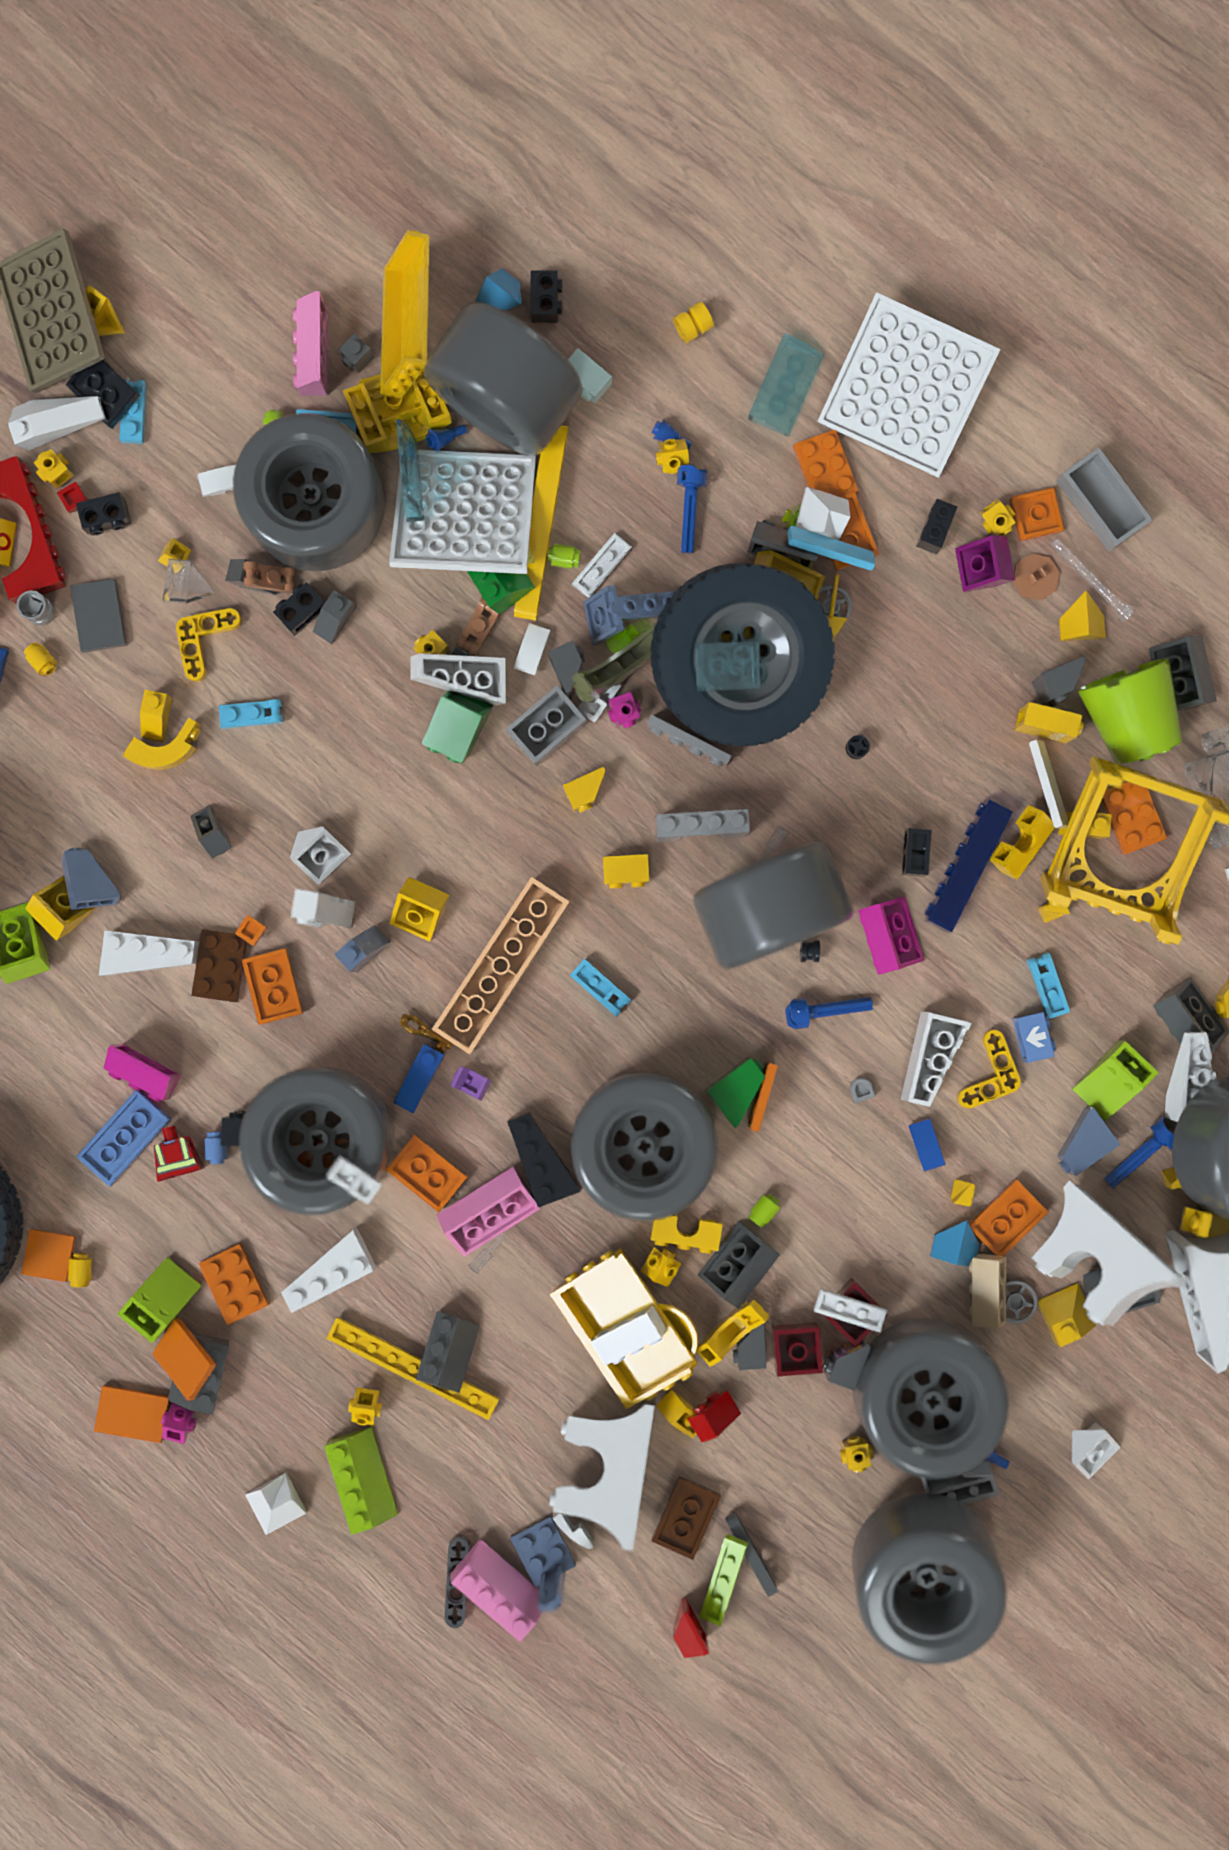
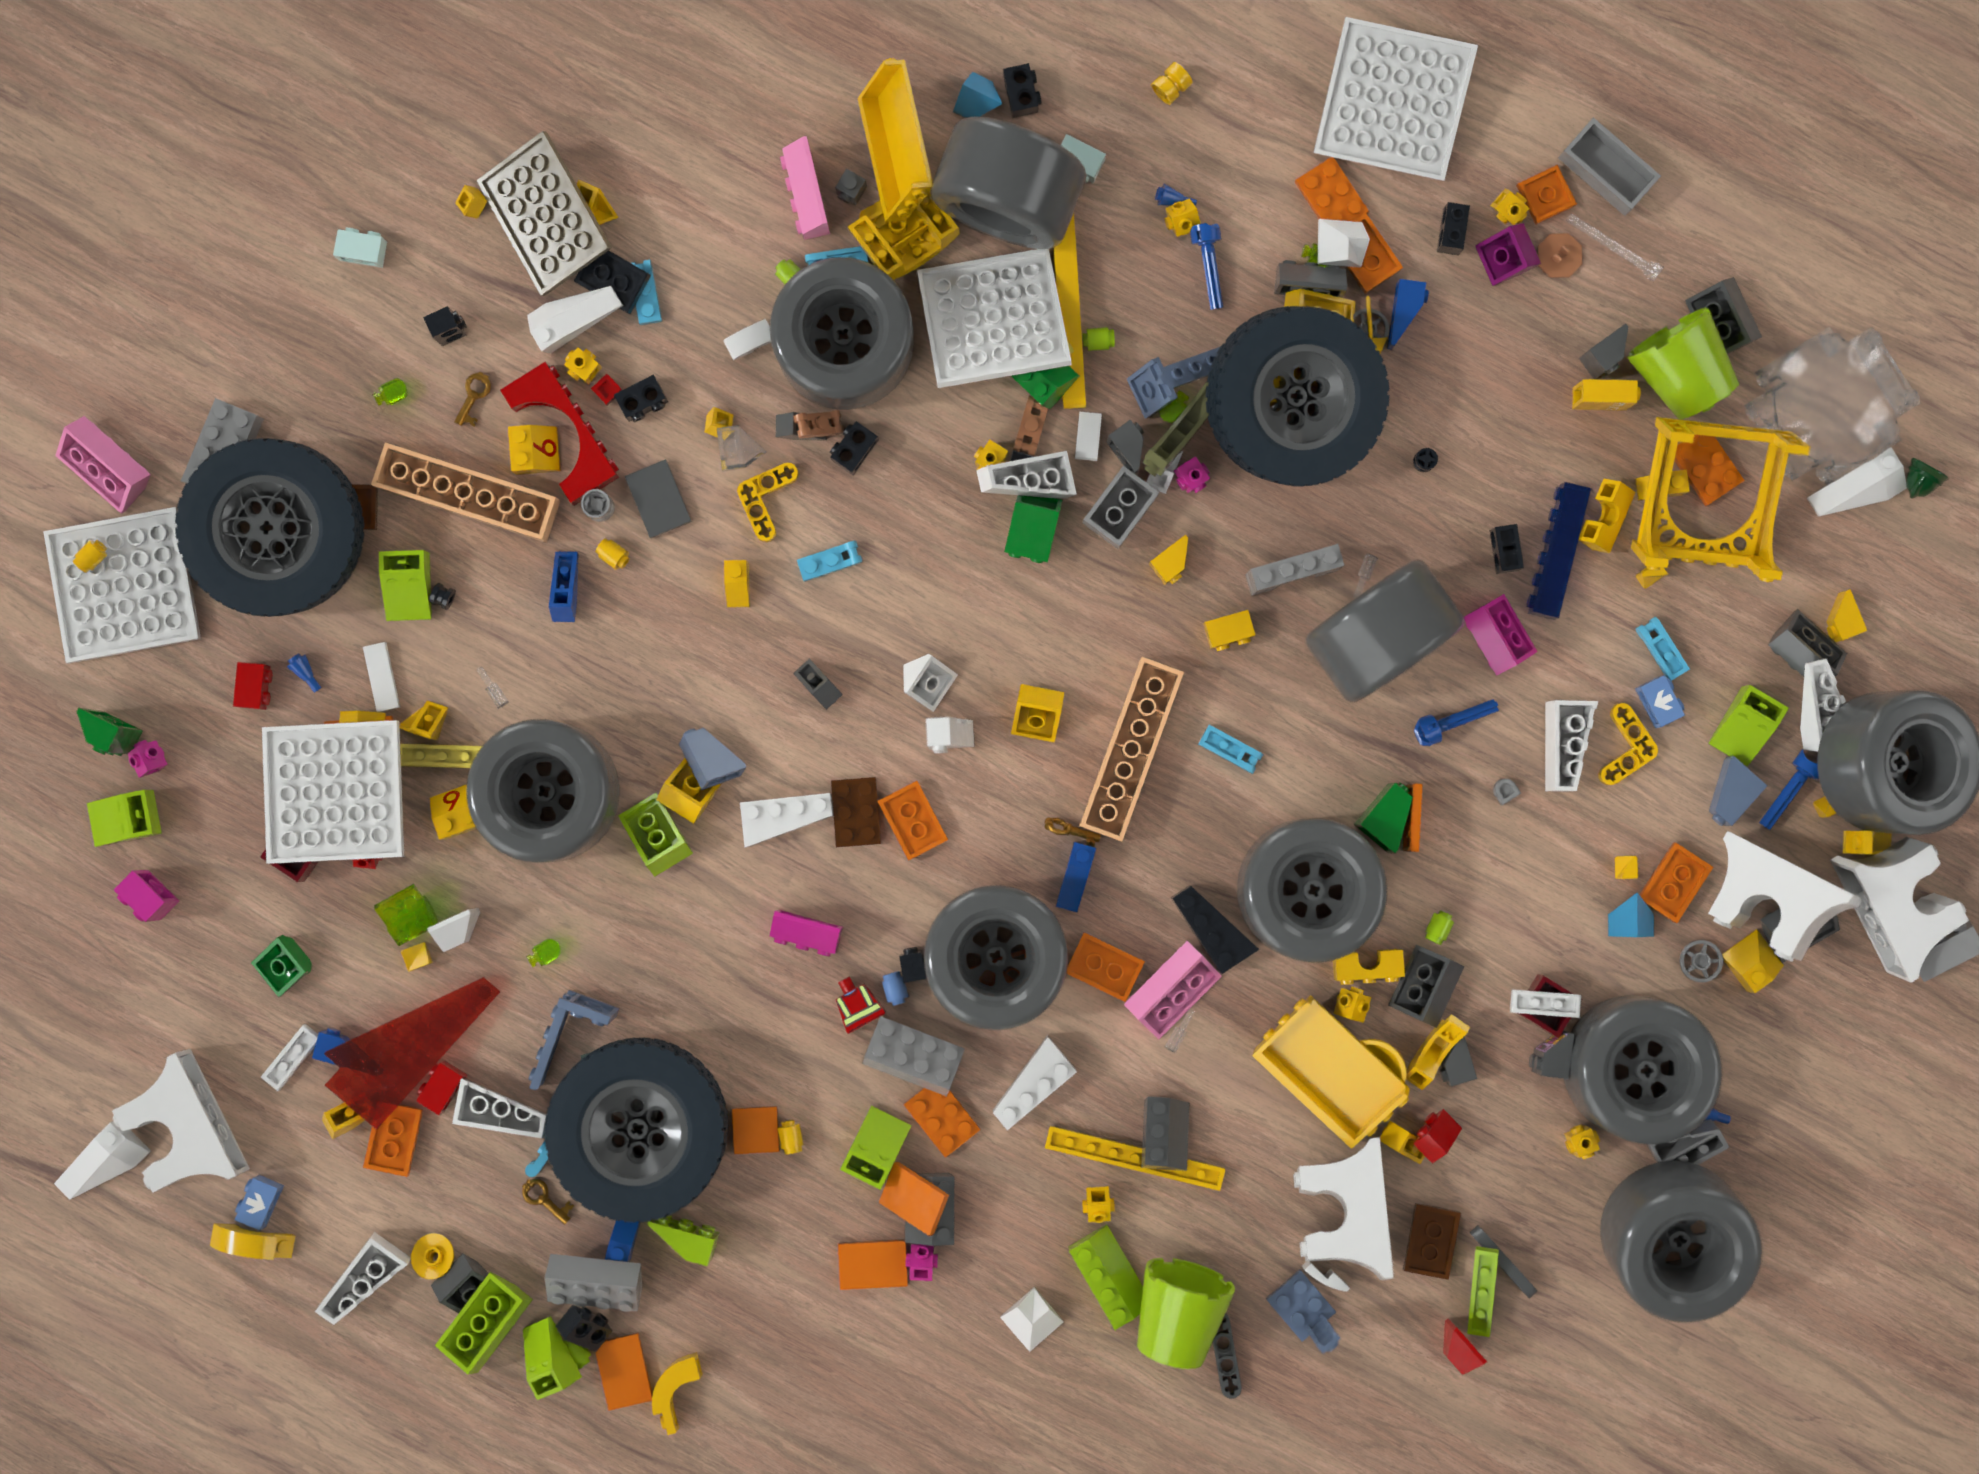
camera: 15 degrees left, 0 degrees up
(123, 1137) = (801, 999): medium blue tile -> none
(166, 756) = (757, 621): yellow arch -> none
(217, 1218) = (913, 1056): none -> light grey piece
(251, 930) = (880, 770): orange tile -> none
(333, 617) = (888, 448): dark grey slope -> none
(354, 1180) = (1047, 984): white slope -> none
(362, 949) = (993, 763): sand blue slope -> none
(410, 473) = (933, 293): clear light blue slope -> none
(419, 1532) = (1181, 1311): none -> lime cone
(440, 437) = (951, 251): blue cone -> none
(471, 1082) = (1127, 869): medium lavender bracket -> none
(498, 1589) = (1269, 1350): bright pink slope -> none
(601, 565) = (1136, 339): white tile -> none
(629, 1336) = (1338, 1077): white brick -> none
(680, 737) = (1252, 489): light grey plate -> none
(727, 666) = (1288, 410): clear light blue tile -> none
(785, 385) = (1274, 124): clear light blue slope -> none
(797, 1349) = (1502, 1054): dark red brick -> none
(810, 951) = (1425, 668): black wheel -> none
(831, 548) = (1357, 273): medium azure tile -> none
(875, 590) = (1407, 302): none -> blue slope
(927, 1145) = (1581, 829): blue slope -> none
(988, 1291) = (1672, 955): tan brick -> none
(1049, 784) = (1619, 453): white tile -> none
(1082, 621) = (1614, 288): yellow slope -> none
(1092, 1449) = (1808, 1084): white slope -> none

